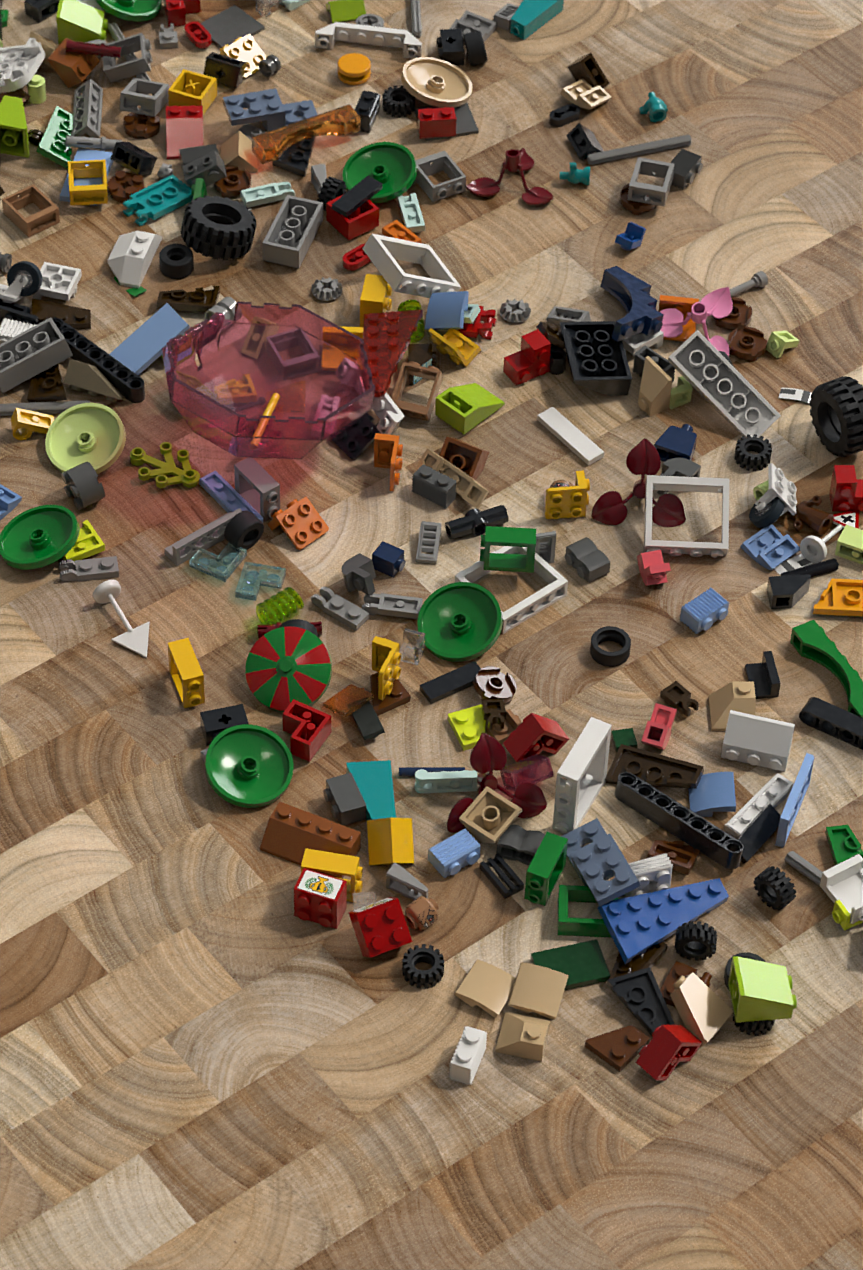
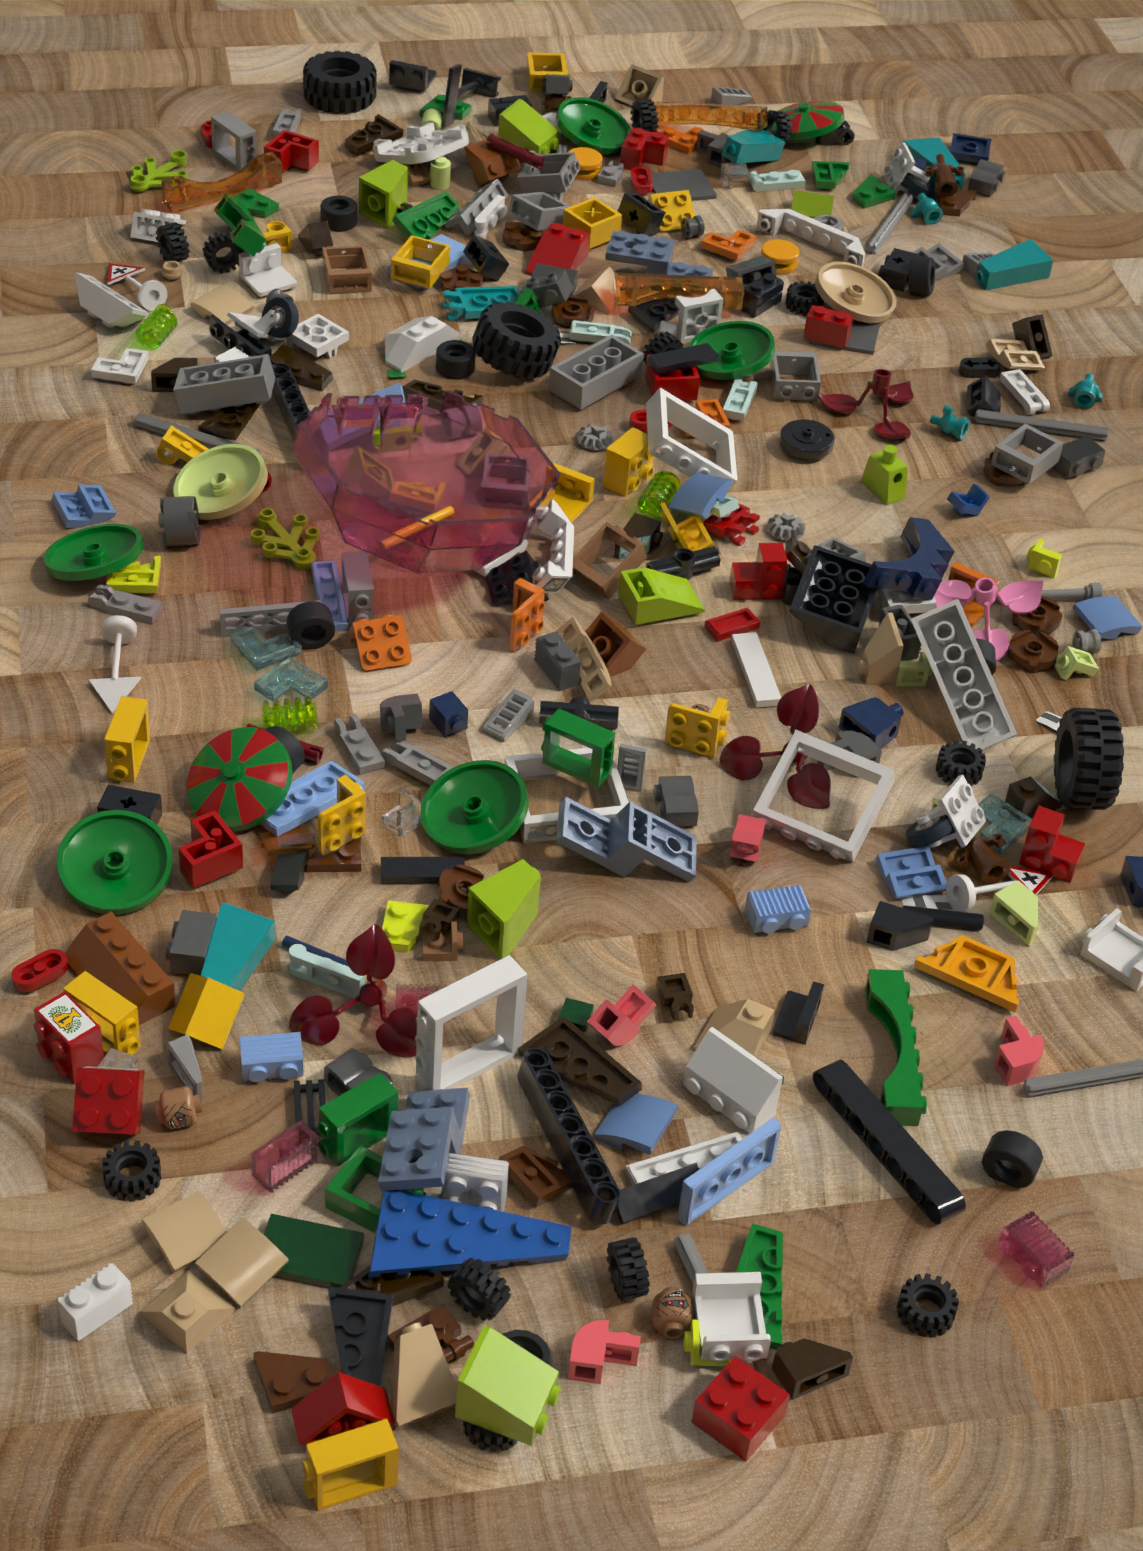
camera: 25 degrees right, 5 degrees down
(88, 377) = (275, 429): dark tan slope -> none
(91, 143) = (459, 235): light grey pin -> none
(106, 117) = (490, 216): none -> white plate
(146, 27) = (590, 162): none -> light orange head
(165, 171) = (511, 279): light grey plate -> none
(252, 867) = (39, 971): none -> red plate
(311, 74) = (732, 248): none -> orange plate
(337, 150) = (697, 314): none -> white piece
(346, 93) = (751, 269): none -> dark grey brick
(346, 653) = (308, 798): none -> light blue tile
(386, 342) = (605, 499): clear red wing -> none
(468, 370) = (686, 562): none -> black piece
(483, 229) = (806, 439): none -> black wheel
(489, 816) = (337, 1028): tan slope -> none
(516, 913) = (285, 1156): none -> clear pink brick
(530, 406) = (732, 623): none -> red tile
(532, 685) = (504, 907): none -> lime slope
(534, 736) = (456, 960): red brick -> none
(562, 239) = (886, 475): none -> lime torso
(578, 602) = (626, 839): none -> sand blue bracket
(611, 124) = (1025, 391): none -> white plate
(614, 634) = (634, 919): black tyre -> none
(698, 1076) = (351, 1465): none -> yellow window
(711, 266) = (1043, 560): none -> neon yellow bracket
(779, 322) = (1087, 641): none -> light grey wheel
(780, 296) = (1107, 616): none -> medium blue slope
(787, 945) = (595, 1345): none -> coral brick
(808, 482) = (1003, 820): none -> clear light blue plate
(814, 462) = (1028, 795): none -> dark brown slope
(815, 903) = (672, 1312): none -> medium nougat head

